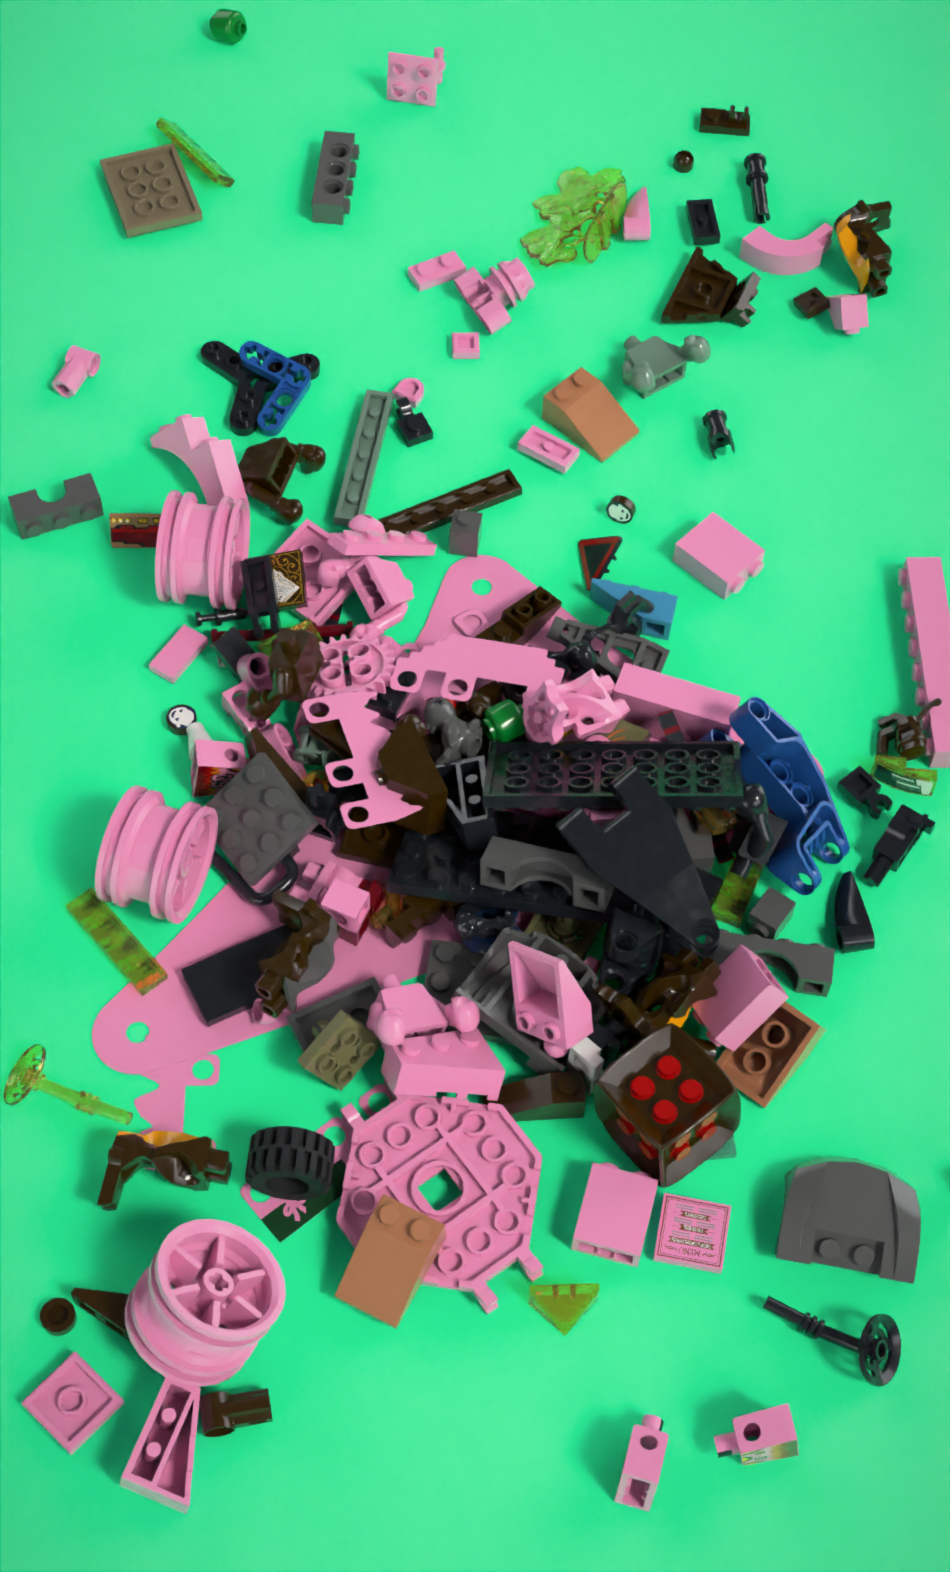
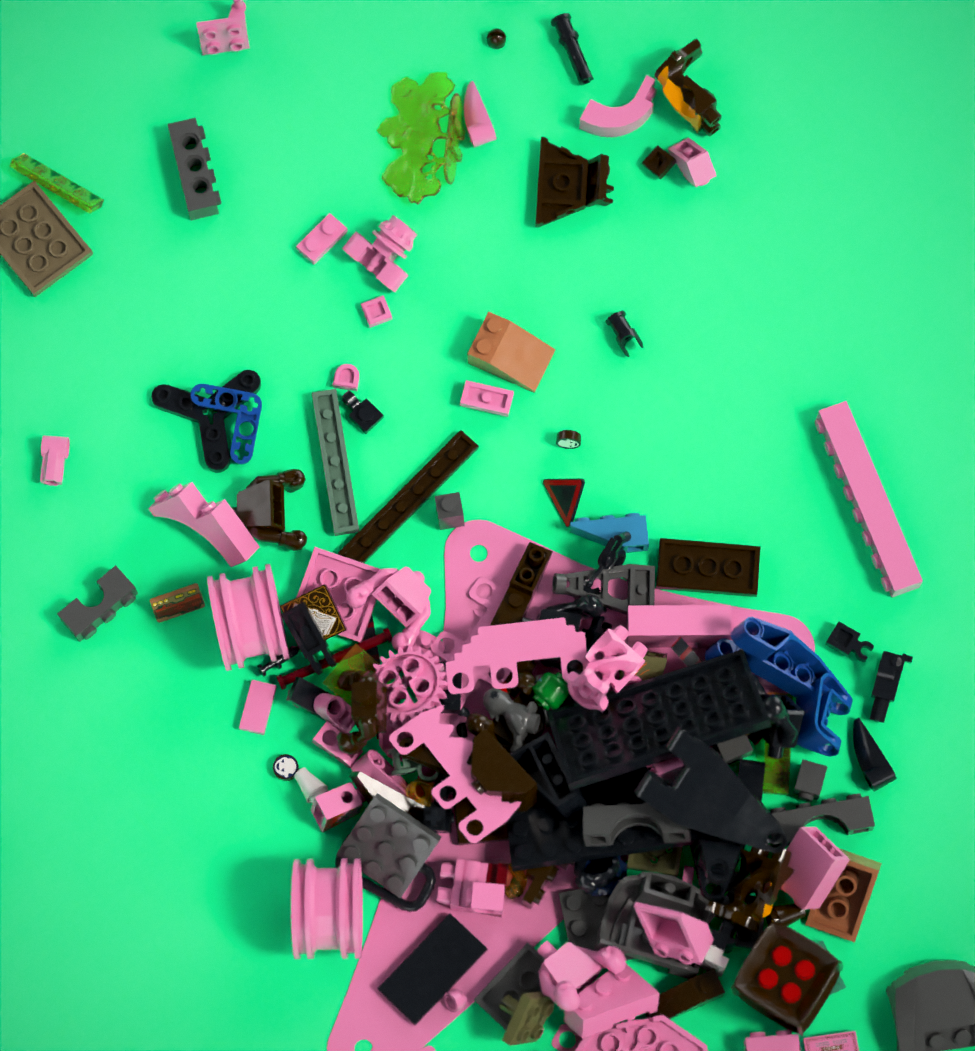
camera: 15 degrees left, 15 degrees up
(117, 942) = (317, 981): clear yellow tile -> none
(228, 25) = (26, 23): green head -> none
(299, 959) = (471, 955): dark brown hips -> none
(371, 539) = (384, 553): bright pink plate -> none
(658, 364) = (548, 278): sand green torso -> none
(702, 222) = (536, 104): black plate -> none
(719, 556) = (665, 458): bright pink brick -> none
(729, 668) = (708, 567): none -> dark brown plate
(894, 773) = (867, 617): slope -> none
(906, 731) = (870, 583): dark brown piece -> none

